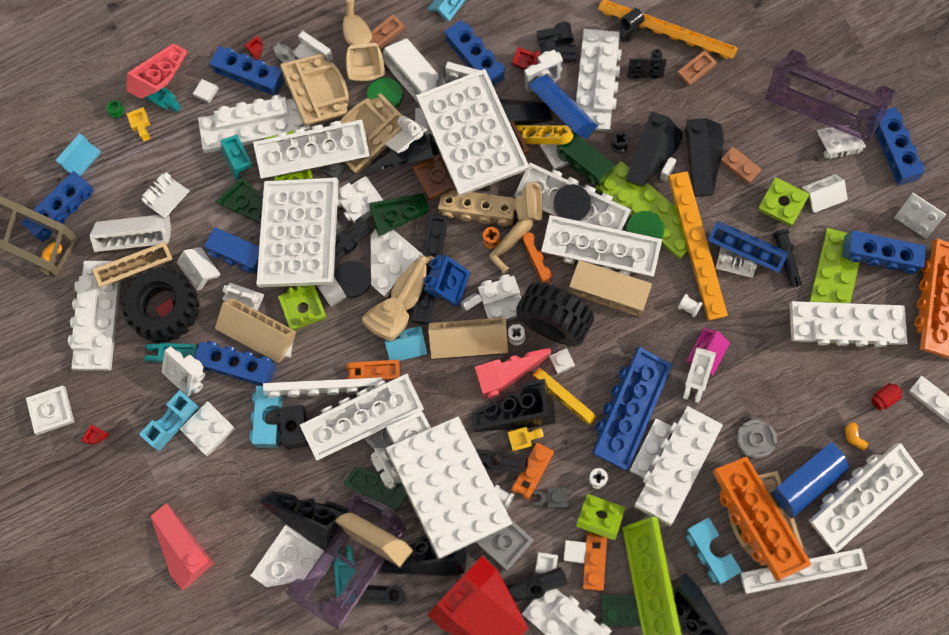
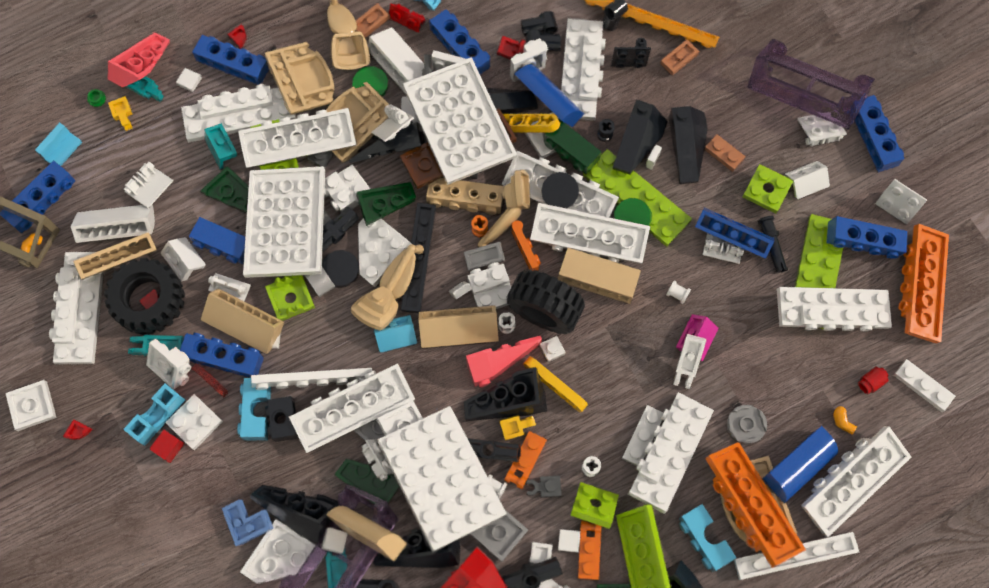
camera: 10 degrees left, 0 degrees up
(180, 452) = (166, 446): none -> red panel
(180, 549) = (168, 547): coral wedge -> none
(223, 387) = (210, 380): none -> clear red tile
(255, 532) = (244, 527): none -> medium blue plate
(284, 53) = (268, 42): light grey piece -> none
(310, 47) = (295, 35): white panel -> none
(342, 546) = (334, 540): none -> white tile
(386, 369) = (375, 359): orange plate -> none
(420, 28) = (404, 17): none -> red hinge
(446, 279) = (435, 268): blue plate -> none
(495, 268) = (484, 256): none -> light grey tile
(630, 408) = (621, 395): blue plate -> none
(697, 246) = (684, 233): light orange plate -> none

